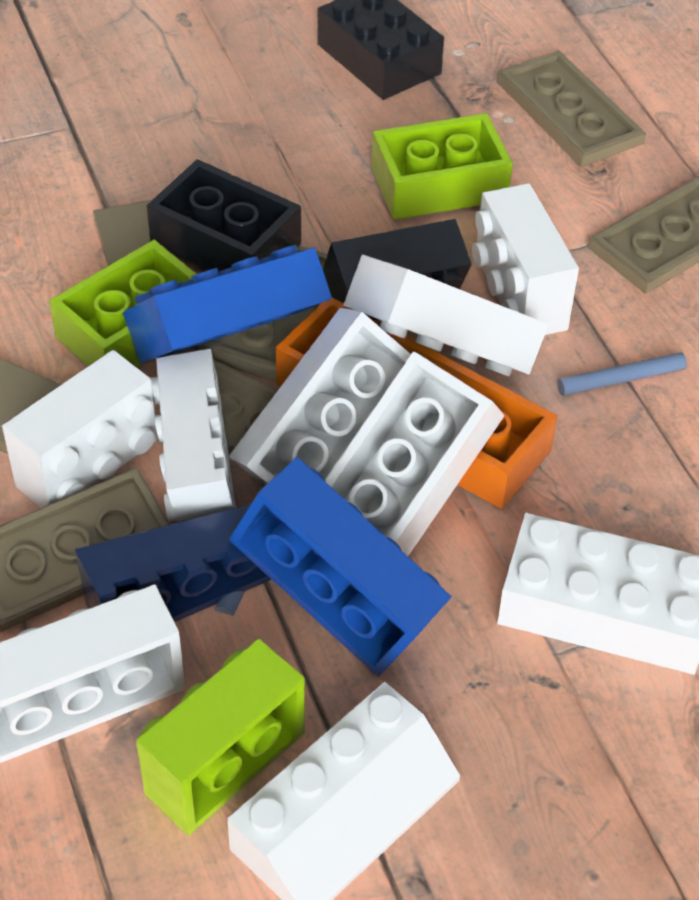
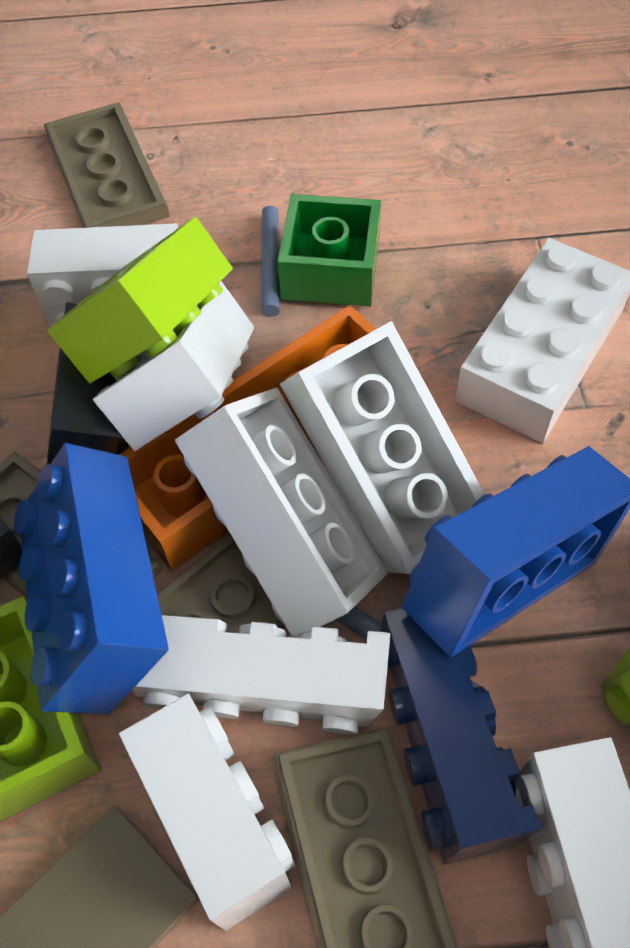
camera: 70 degrees left, 10 degrees up
(460, 253) = (143, 304): none -> lime brick
(637, 403) = (329, 249): none -> green brick

